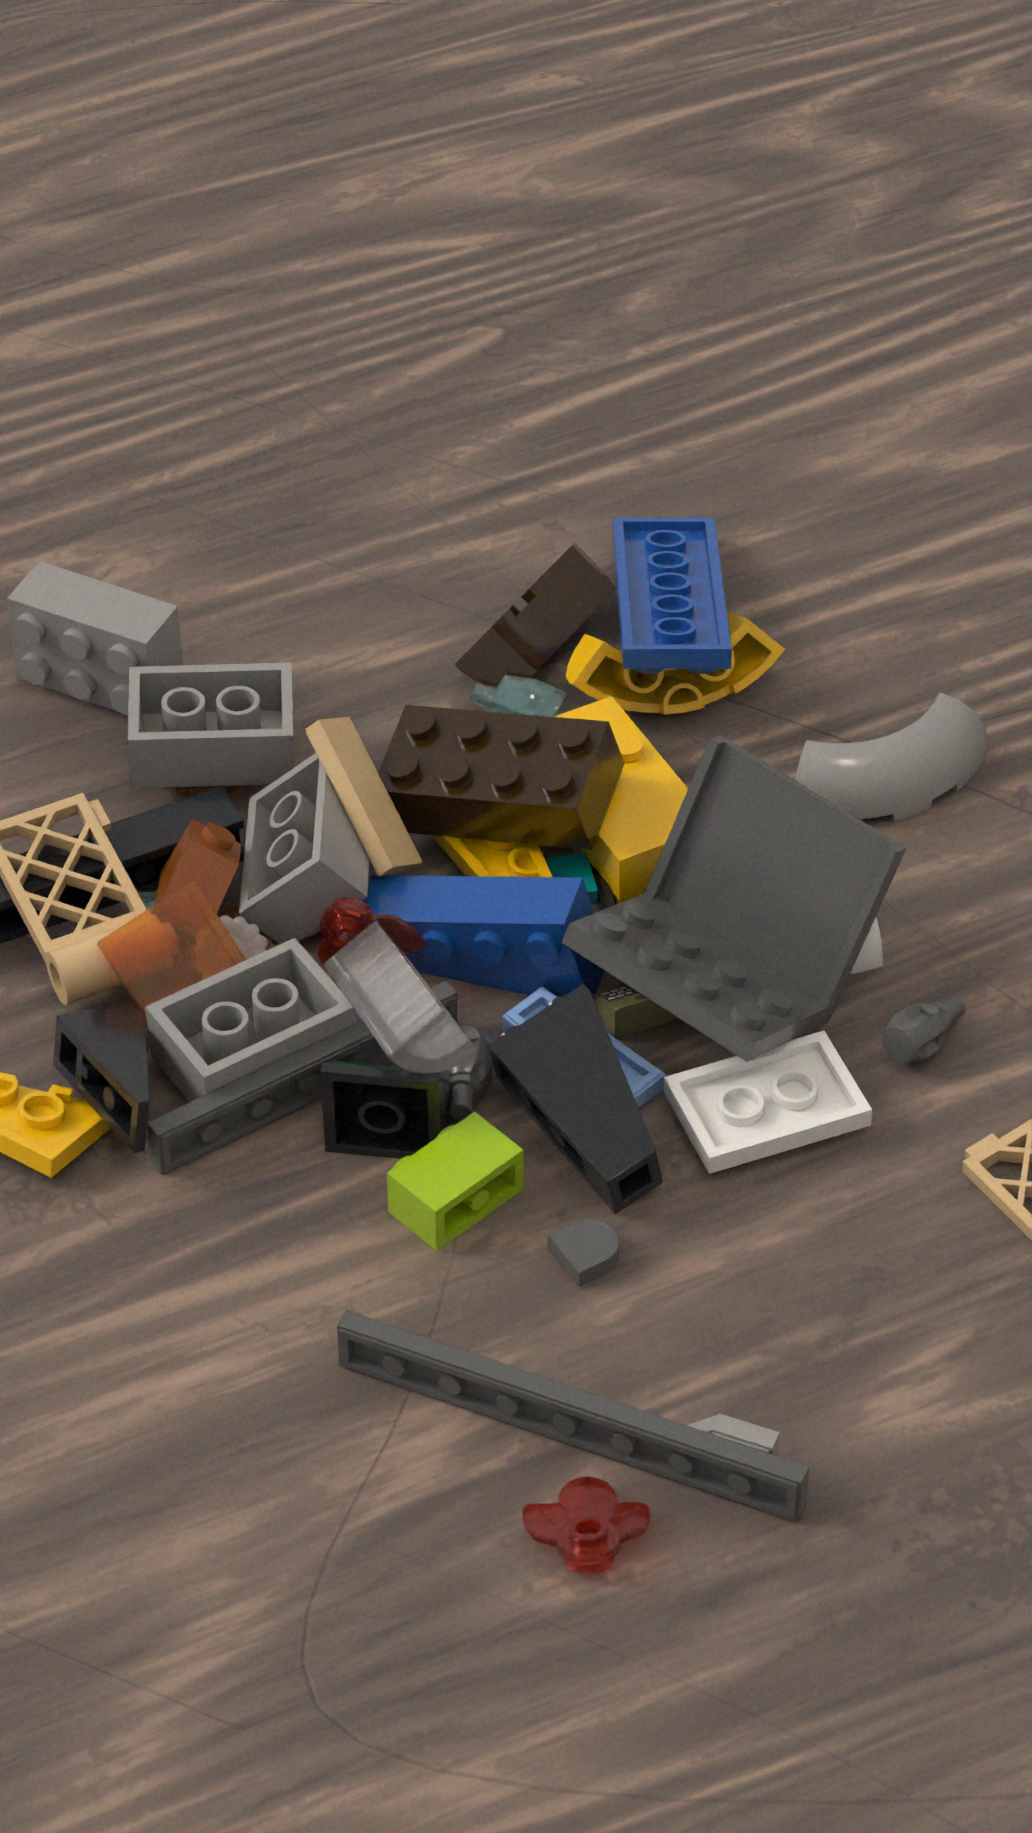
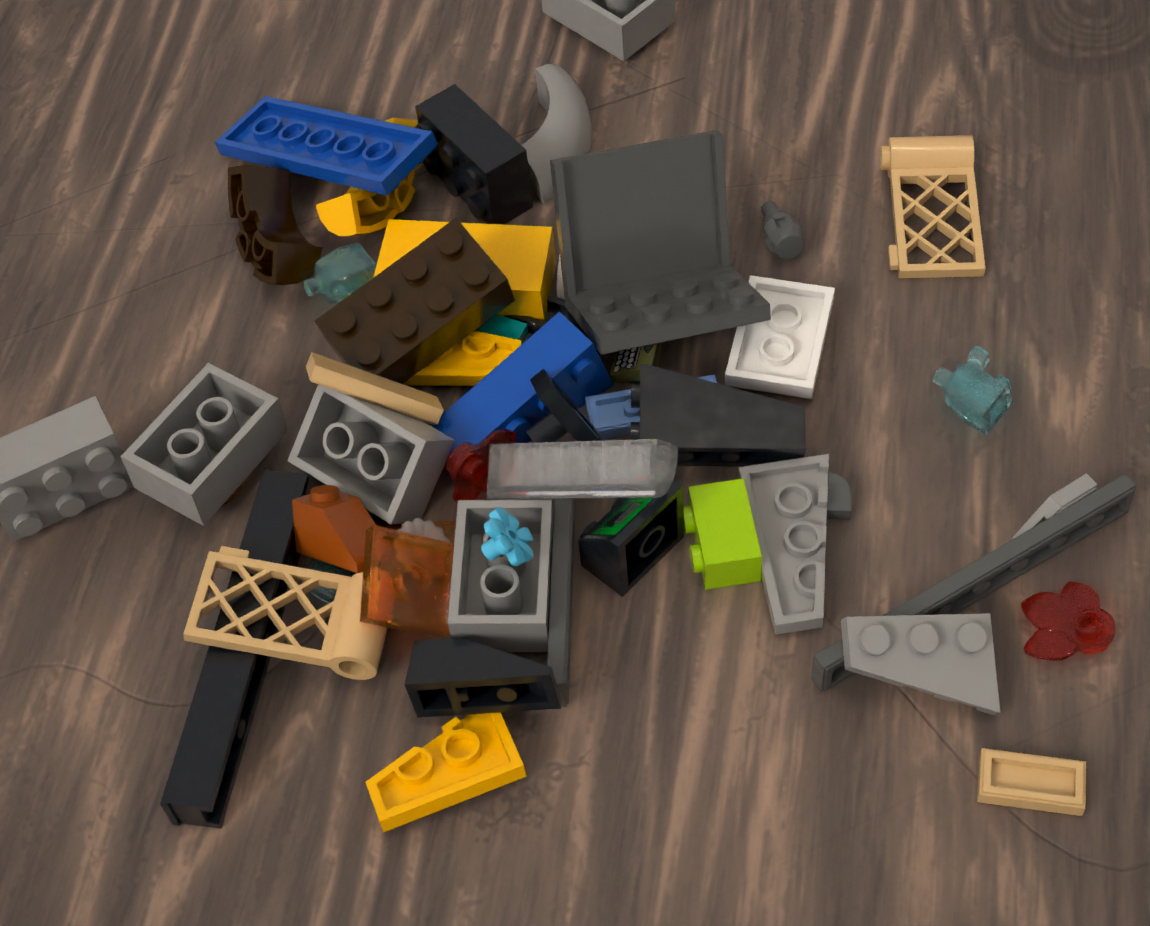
camera: 50 degrees left, 10 degrees up
(266, 986) = (507, 538): none -> medium azure plant
(361, 1581) = (1032, 782): none -> tan tile
(427, 1404) = (928, 653): none -> light grey wing
(468, 963) = (563, 414): none -> black tile
(500, 1238) = (791, 528): none -> light grey wing
(773, 694) = (476, 157): none -> black brick
(821, 1301) = (973, 393): none -> clear light blue piece

